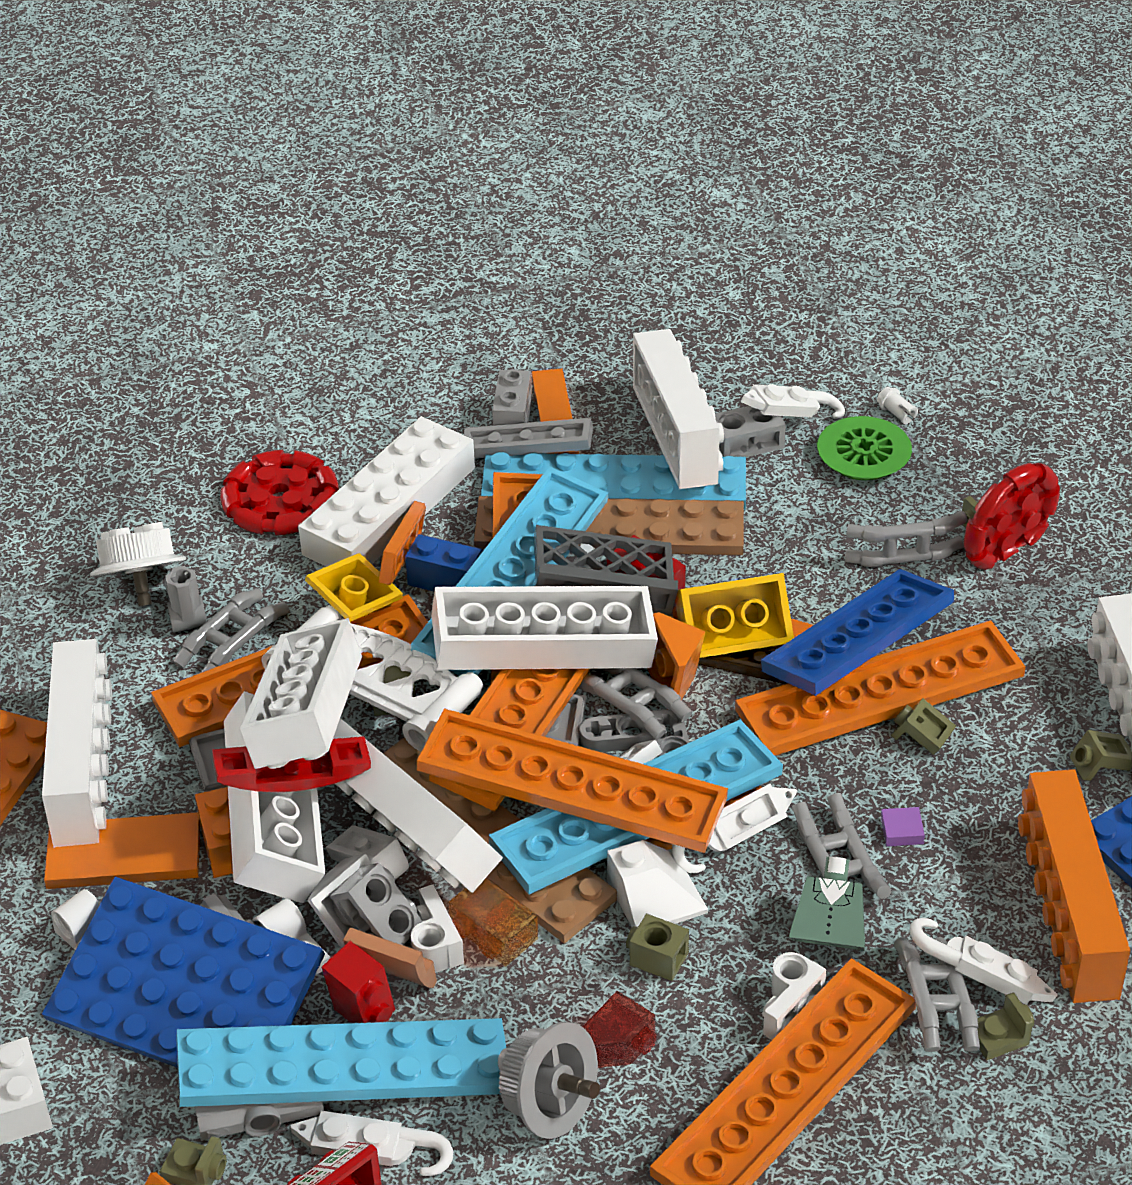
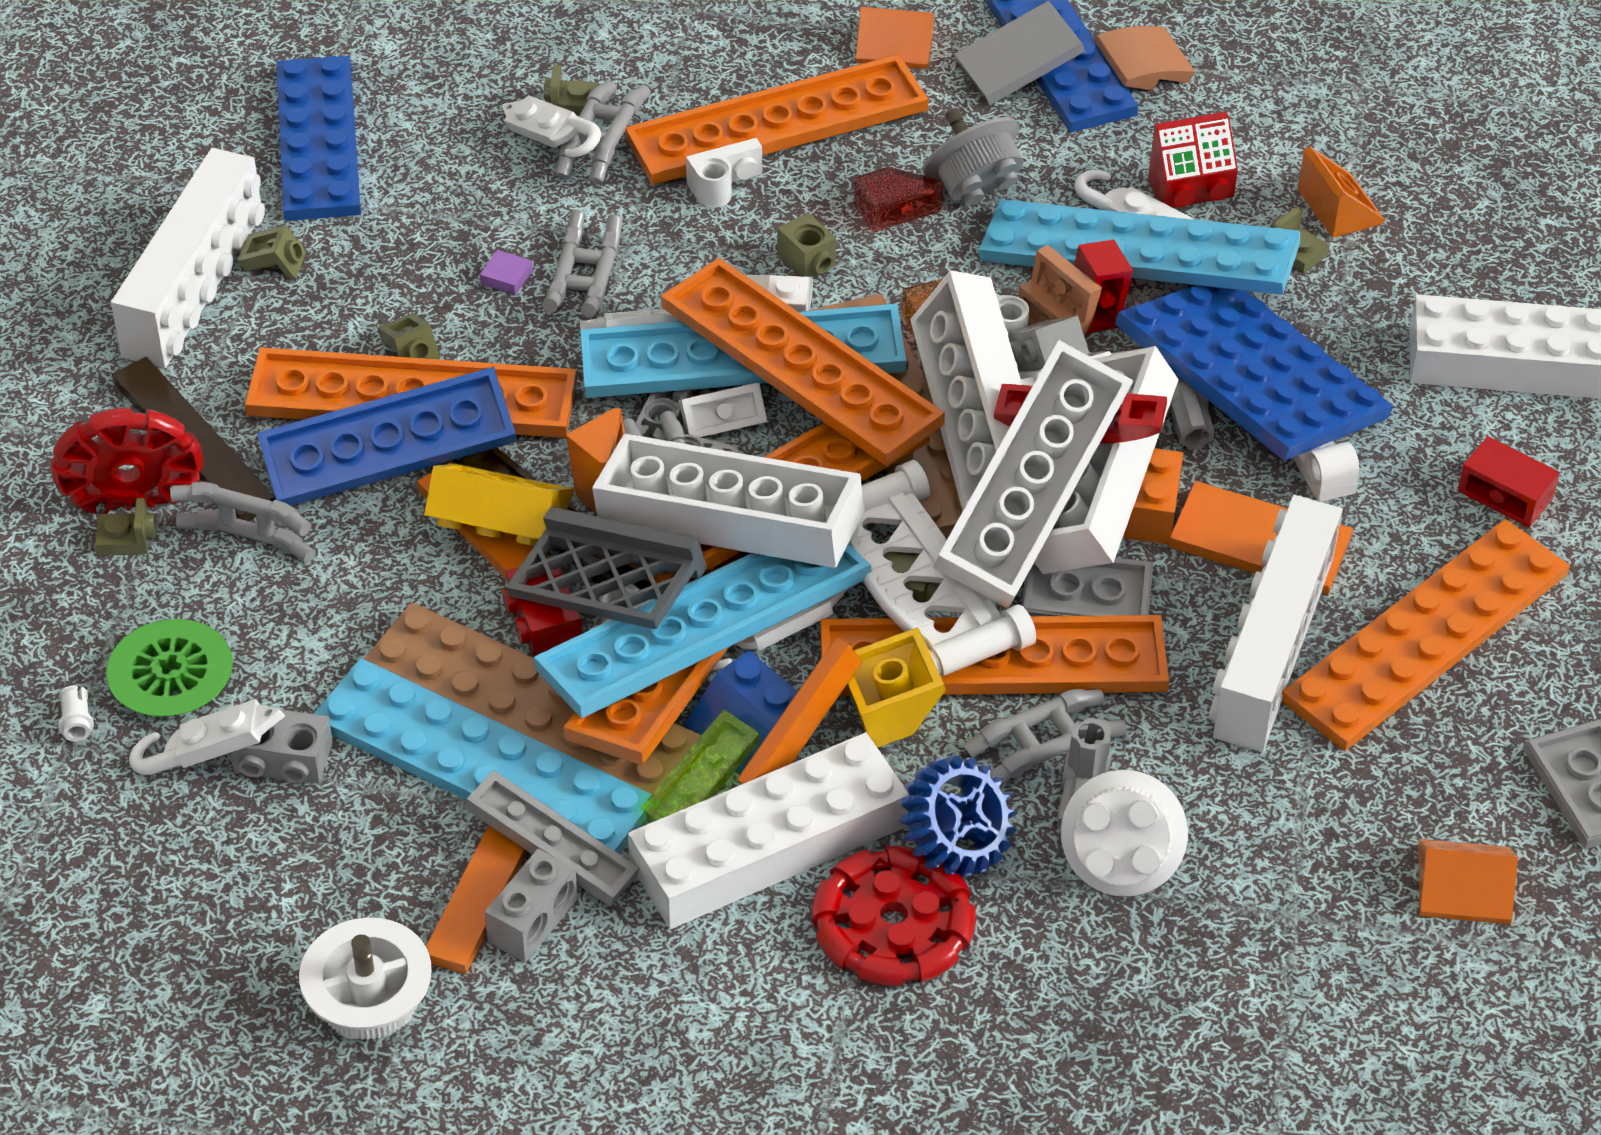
camera: 155 degrees left, 5 degrees up
(259, 532) = (941, 818): none -> blue gear
(455, 508) = (703, 767): none -> clear neon green plate
(577, 328) = (365, 977): none -> white piece
(677, 409) = (357, 761): white brick -> none
(831, 909) = (636, 194): sand green torso -> none
(1008, 596) = (151, 390): none -> dark brown tile
(1074, 887) = (420, 140): orange brick -> none

